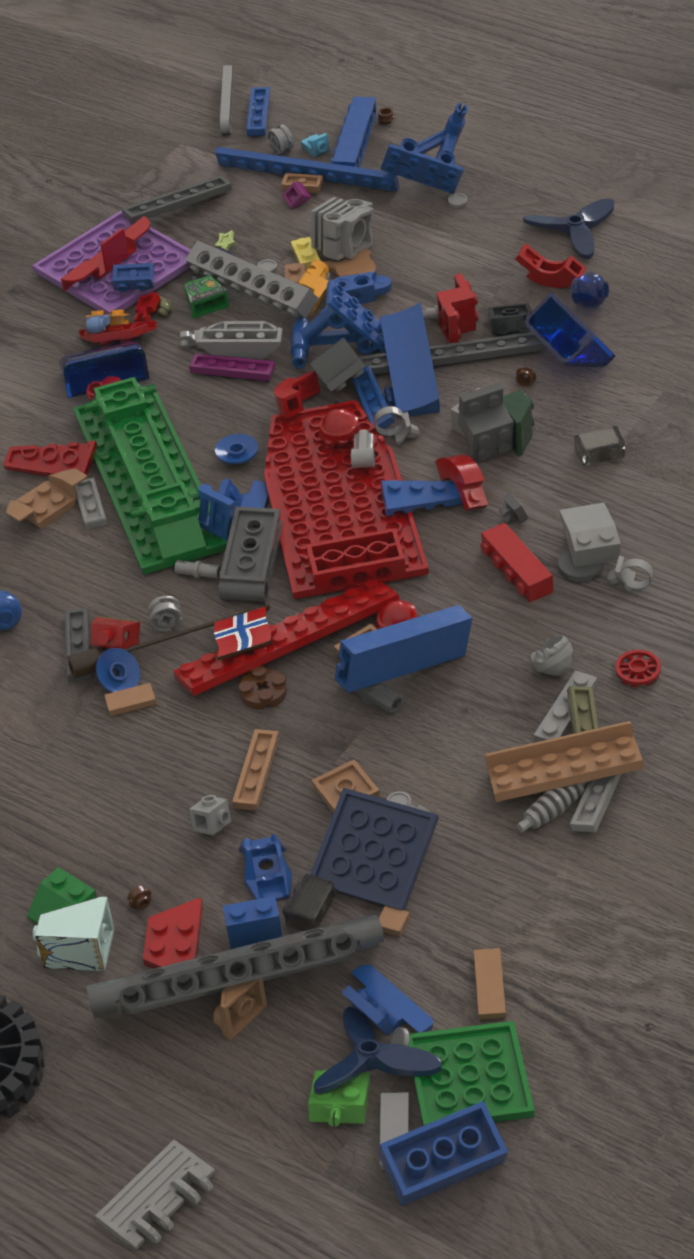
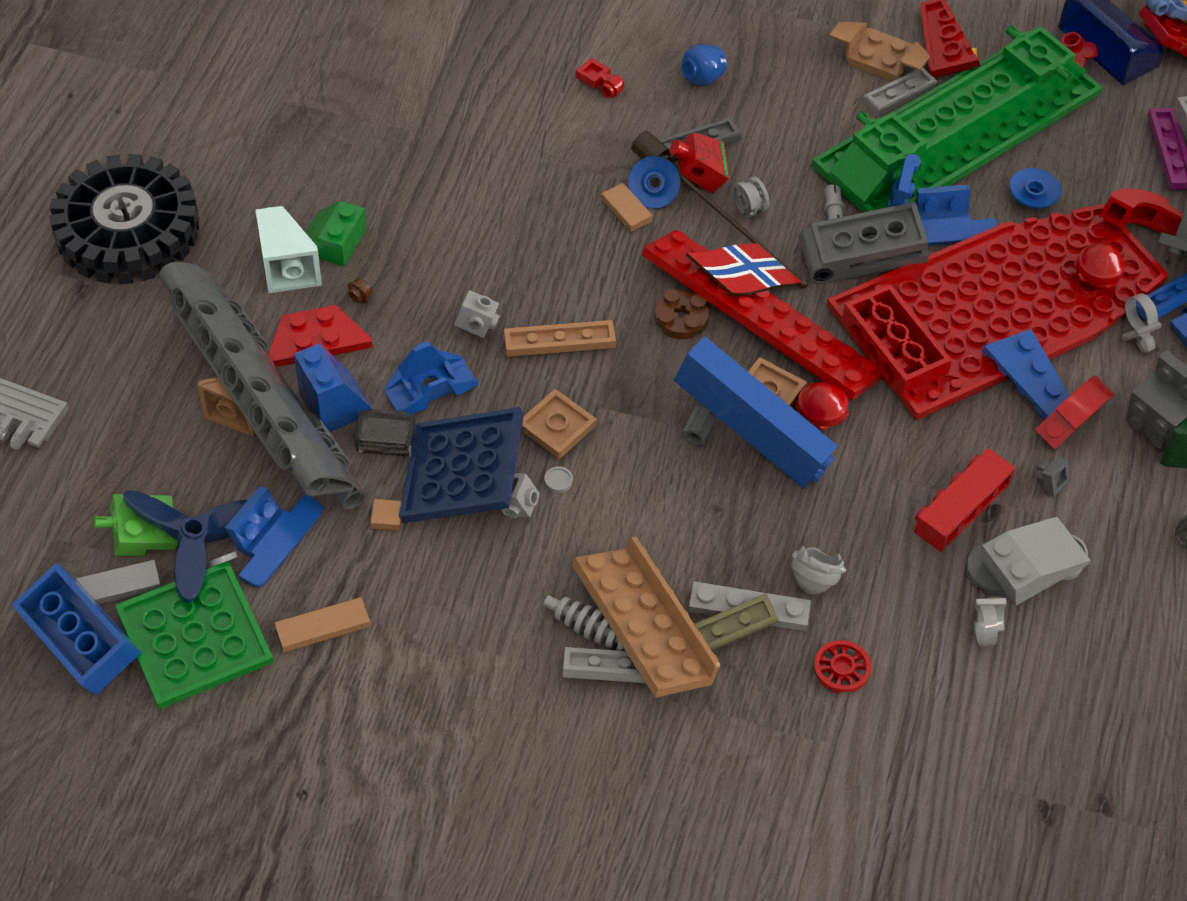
camera: 65 degrees right, 10 degrees up
(363, 453) = (1067, 301): light grey piece -> none

